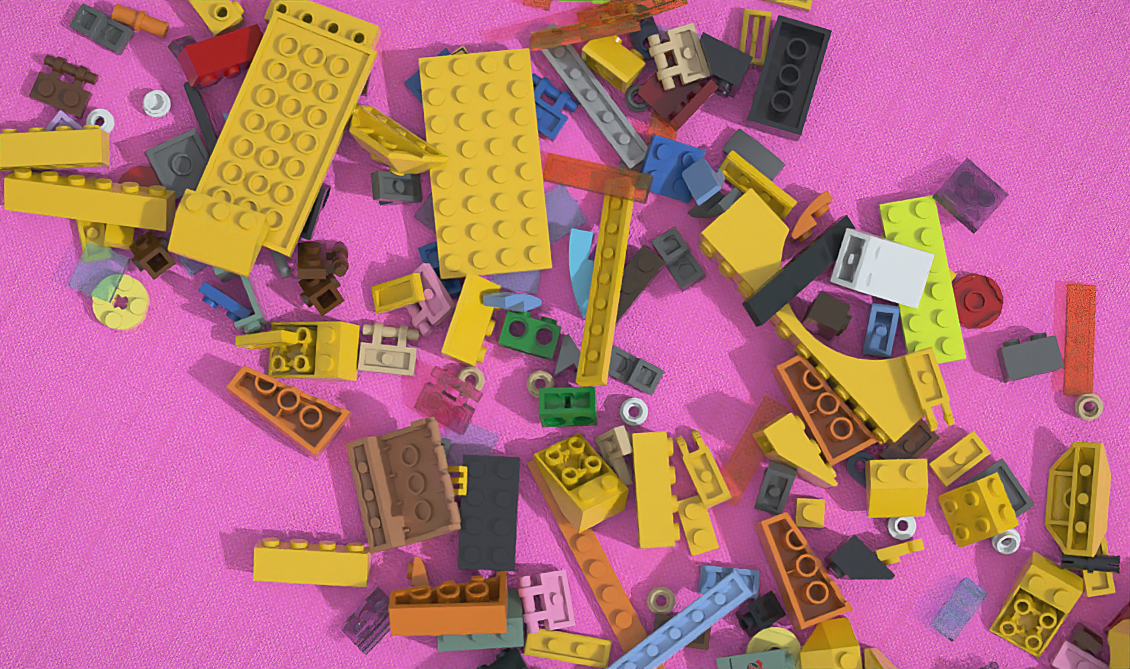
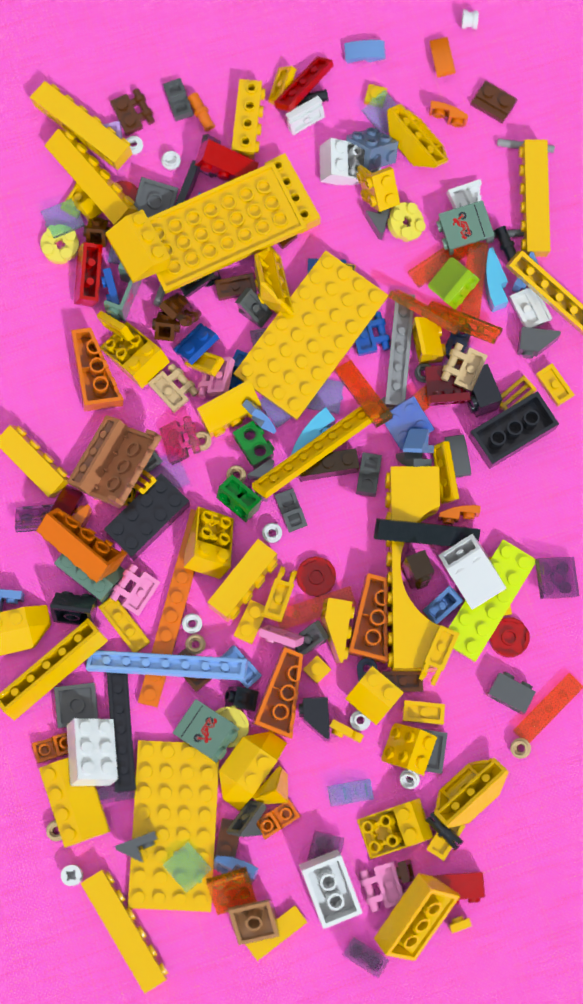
camera: 40 degrees right, 5 degrees down
(184, 309) = (88, 274): none -> red brick
(354, 182) = (234, 286): none -> reddish brown plate
(370, 281) = (196, 343): none -> blue plate
(389, 573) = (68, 500): none -> dark red slope
(612, 448) = (243, 540): tan plate -> none
(647, 582) = (192, 630): none -> white plate
(720, 416) = (316, 576): none -> red tile
(744, 512) = (277, 635): none -> bright pink plate

